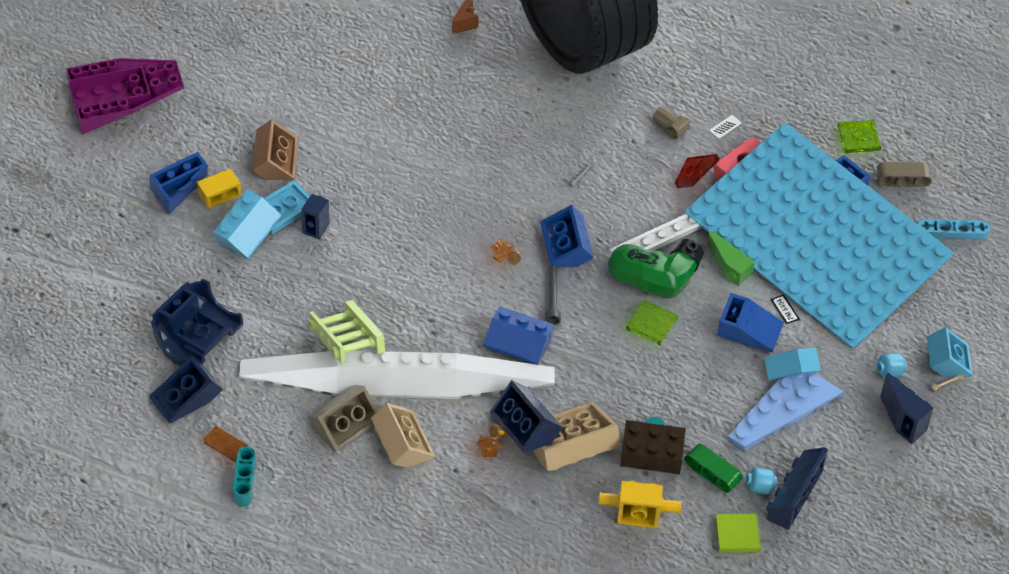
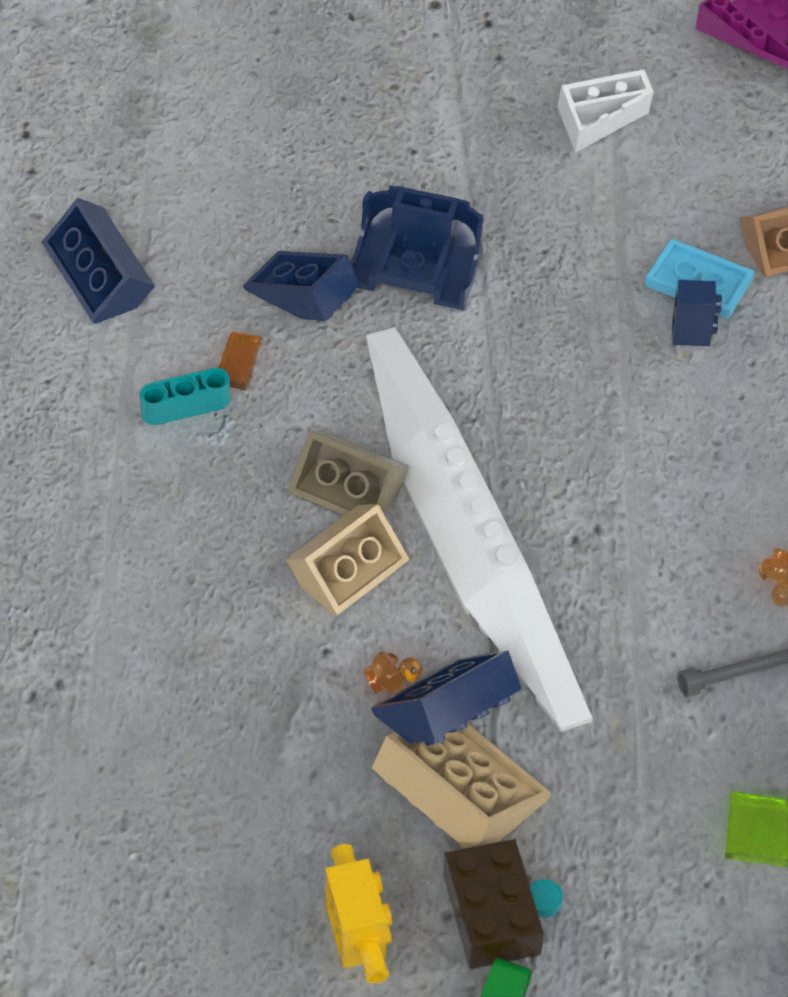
camera: 70 degrees right, 0 degrees up
(111, 489) = (97, 262): none -> dark blue slope
(131, 199) = (603, 106): none -> white wedge
(178, 180) = (666, 145): blue wedge -> none
(219, 188) = (686, 195): yellow brick -> none
(247, 224) = (632, 242): medium azure slope -> none
(357, 321) = (500, 440): yellowish green fence -> none
(518, 335) = (617, 644): blue slope -> none

